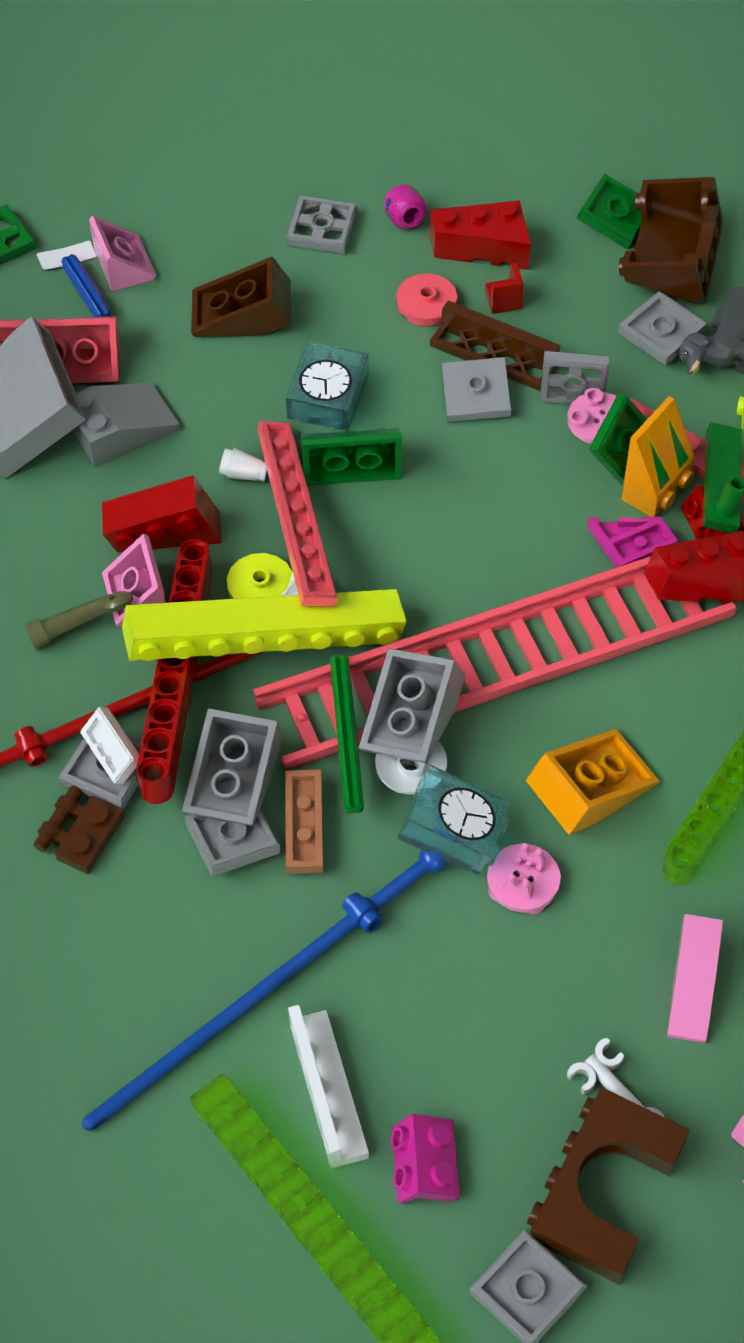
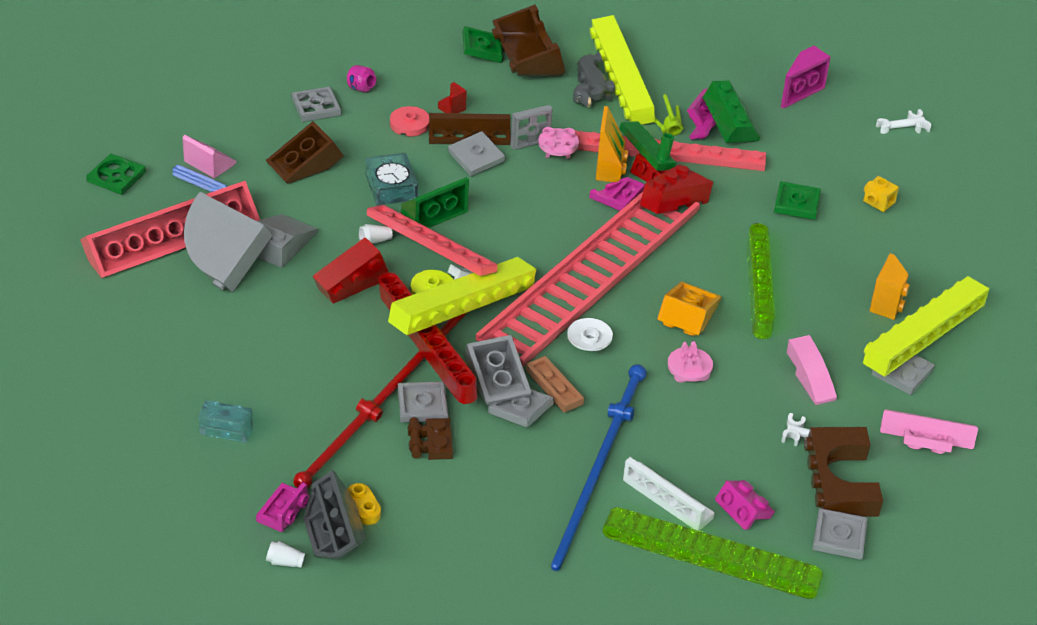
camera: 35 degrees left, 15 degrees down
(49, 628) = (327, 353): olive plant -> none
(53, 258) = (166, 171): white sticker -> none
(110, 745) = (423, 385): white plate -> none
(135, 573) = (364, 309): bright pink slope -> none
(347, 734) = (547, 332): green axle -> none
(411, 705) = (574, 302): light grey slope -> none
(455, 821) = (638, 347): clear light blue brick -> none
(481, 232) = (417, 76): red wedge -> none
(614, 436) = (583, 145): green plate -> none
(660, 327) = (553, 92): light grey plate -> none

